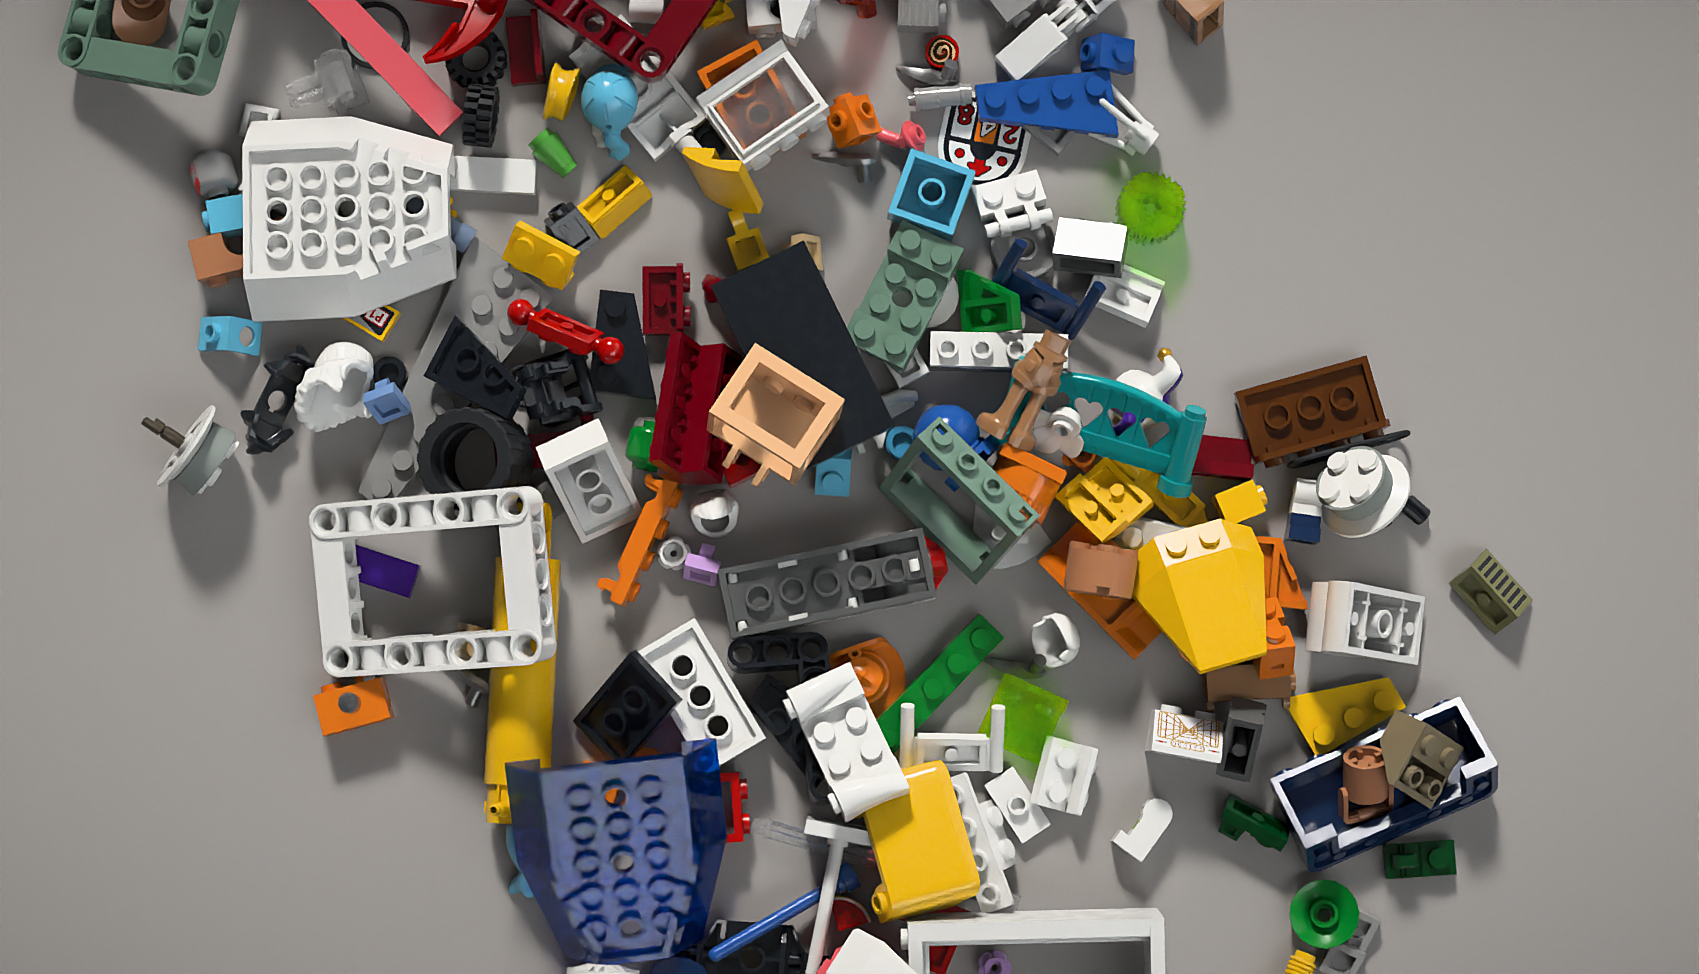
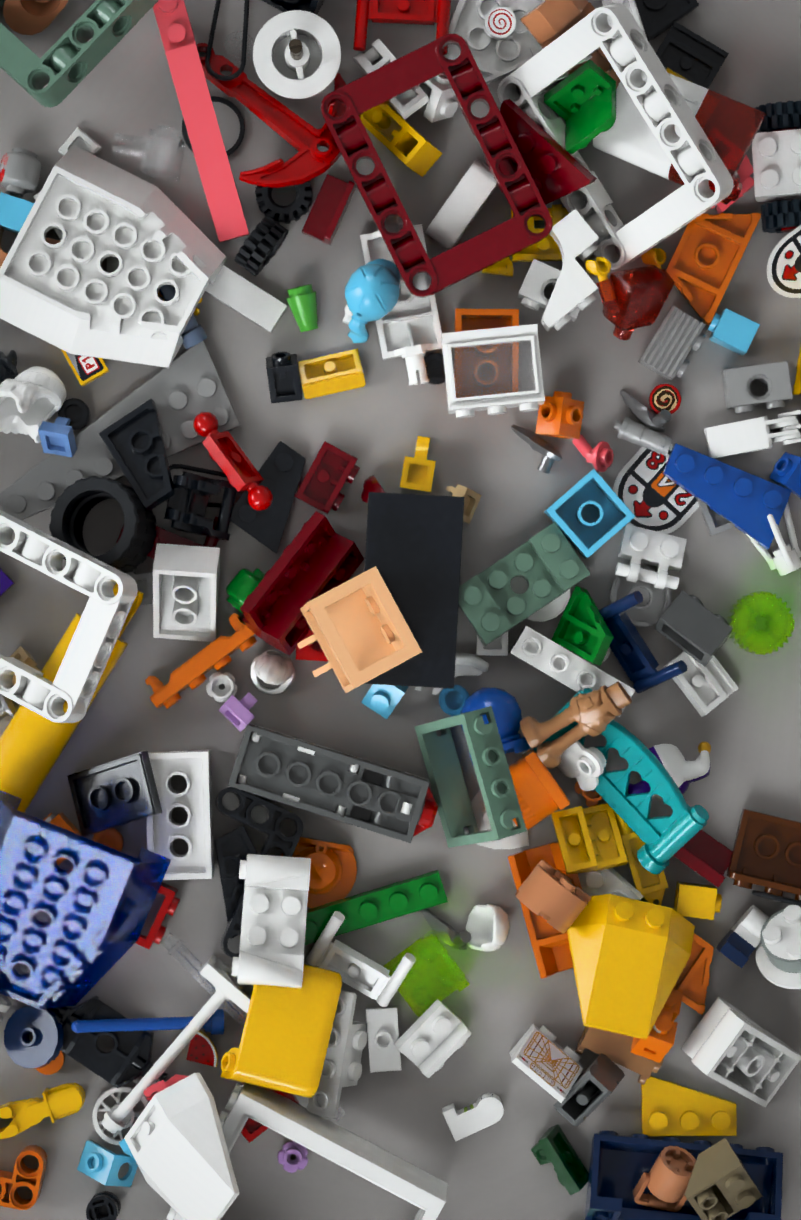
camera: 30 degrees right, 5 degrees up
(541, 256) = (247, 388): yellow bracket -> none
(561, 92) = (336, 262): yellow piece -> none
(723, 180) = (426, 411): yellow slope -> none

